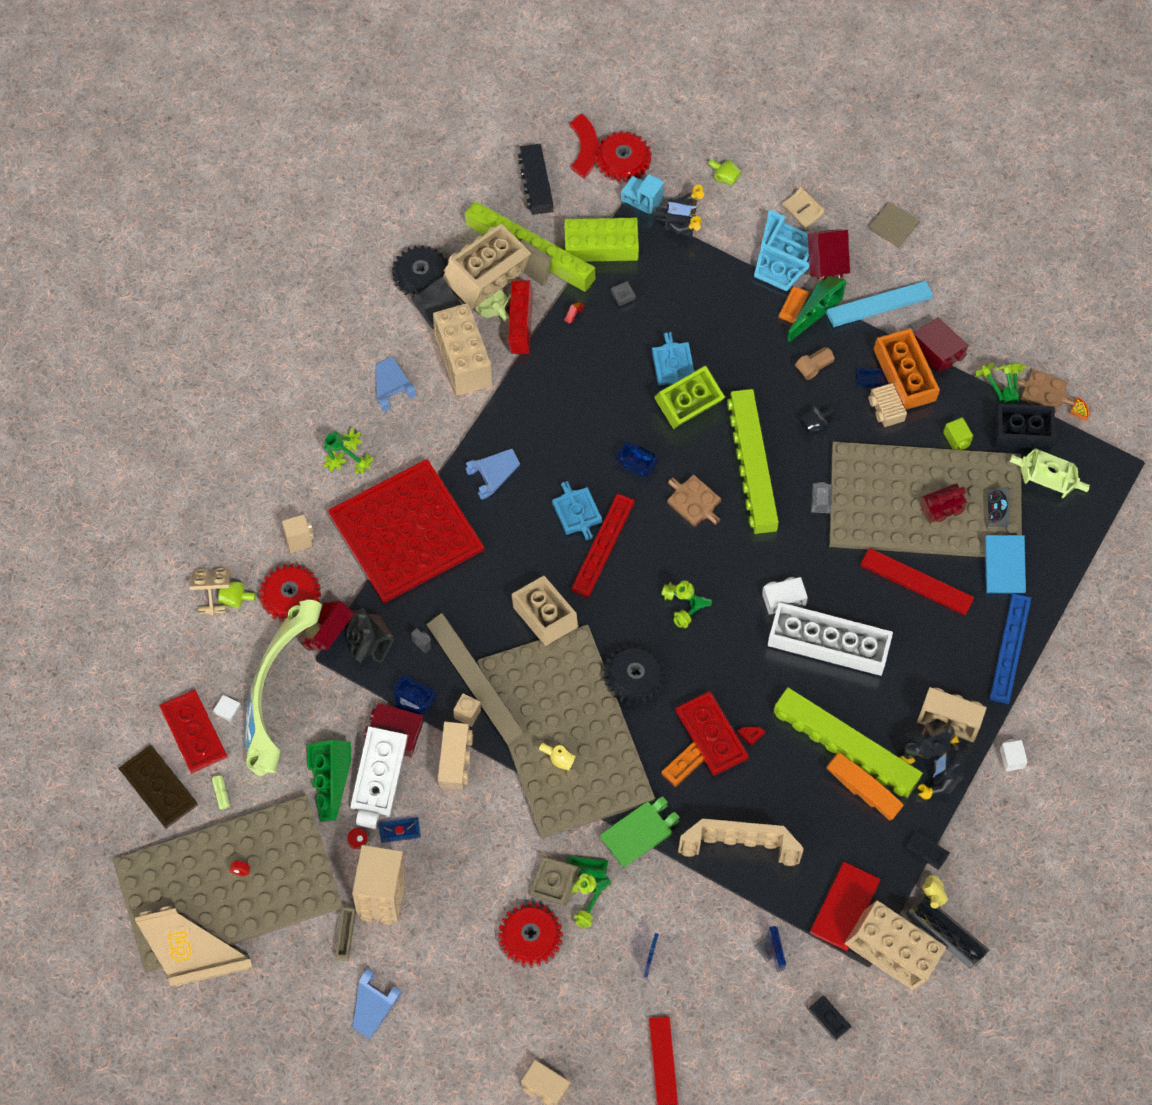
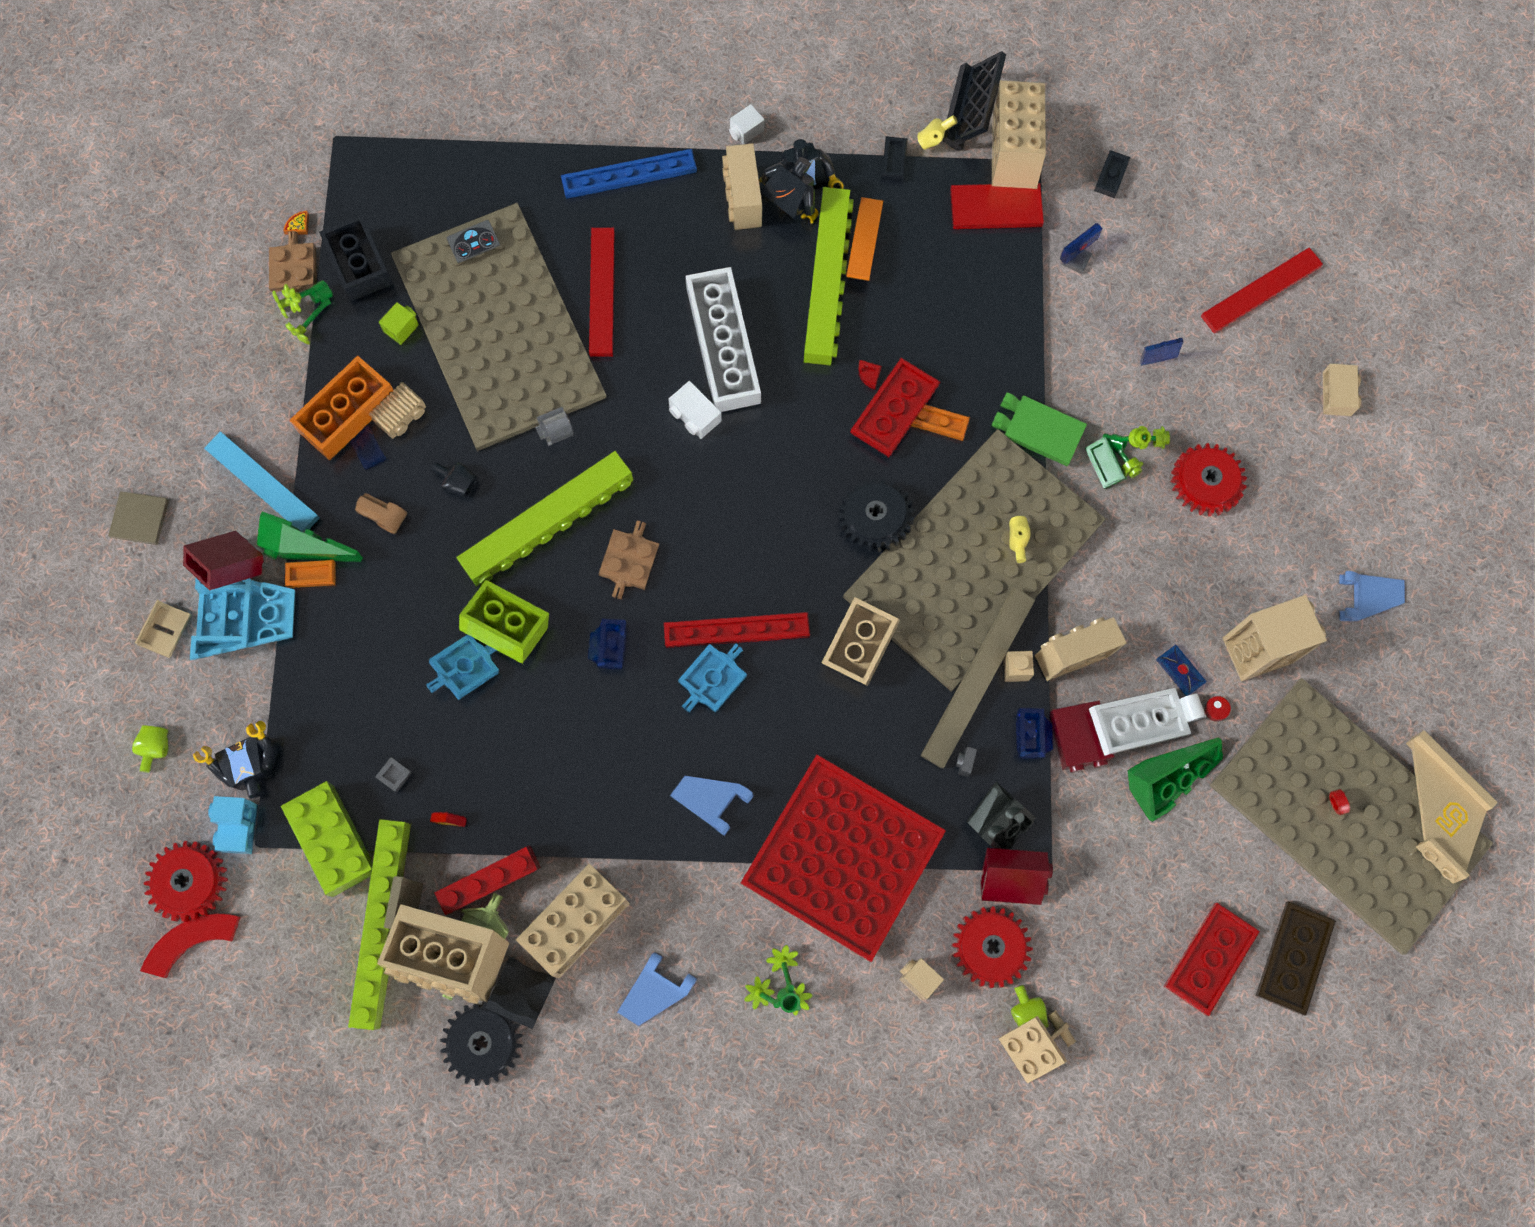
camera: 120 degrees left, 10 degrees up
(220, 791) = (1257, 886): yellowish green piece -> none
(226, 708) = (1164, 937): white tile -> none
(261, 750) = (1055, 910): yellowish green panel -> none
(345, 934) = (1323, 660): dark tan piece -> none
(536, 179) = (271, 973): black brick -> none
(554, 881) = (1142, 482): dark tan tile -> none
(685, 591) = (763, 496): lime plant -> none
(740, 832) = (1022, 365): tan slope -> none
(940, 344) = (287, 390): dark red brick -> none
(944, 503) = (499, 294): dark red brick -> none
(1005, 564) = (537, 211): dark azure tile -> none
(1035, 468) = (403, 226): yellowish green plate -> none

